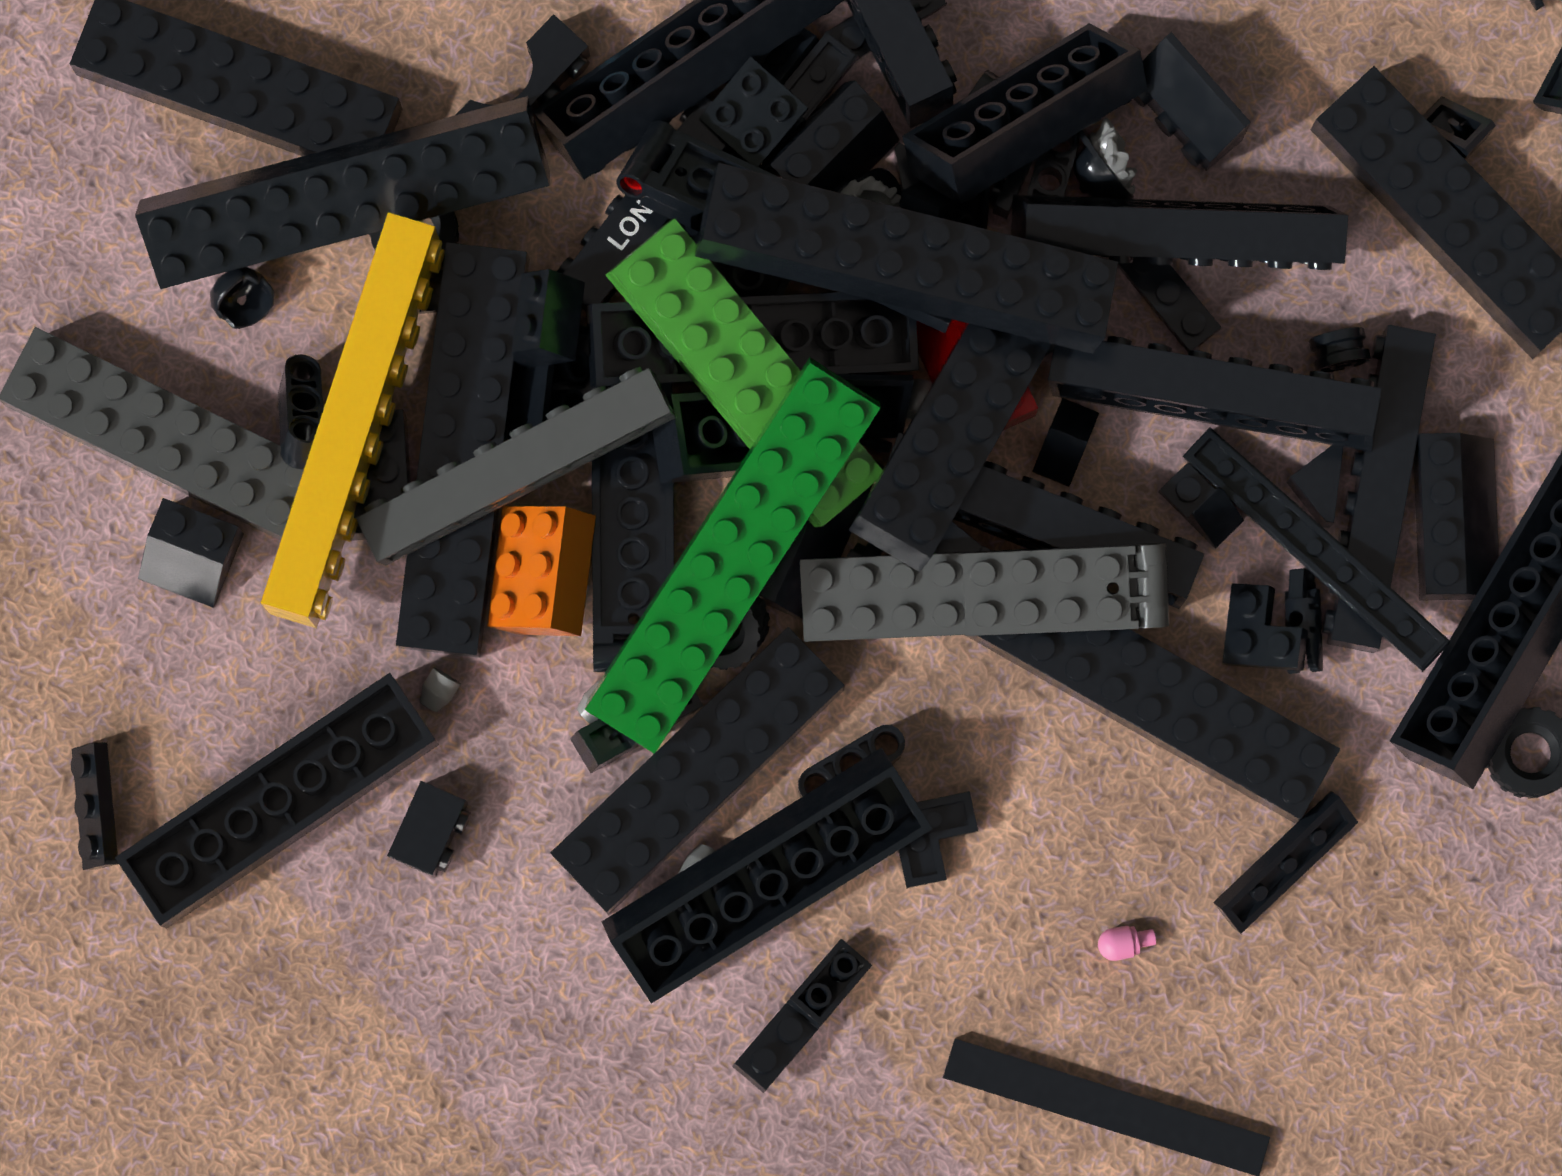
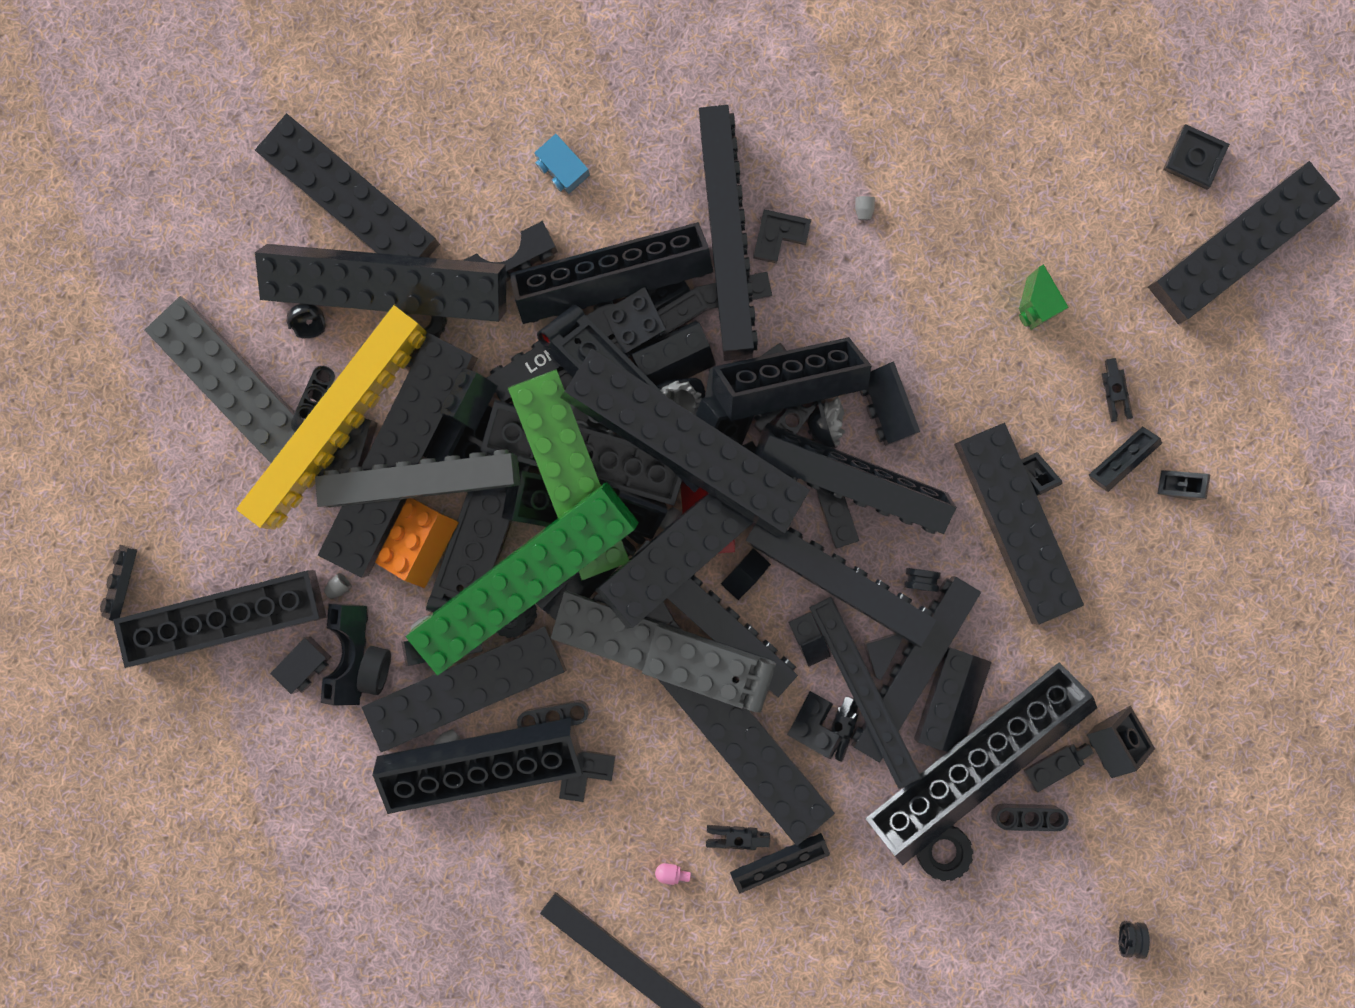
camera: 25 degrees right, 5 degrees up
(189, 552) = (225, 456): black slope -> none
(482, 740) = (349, 625): none -> black arch
(547, 792) = (374, 670): none -> black tyre
(802, 1015) = (471, 850): black slope -> none
(1225, 847) = (750, 837): none -> black hinge

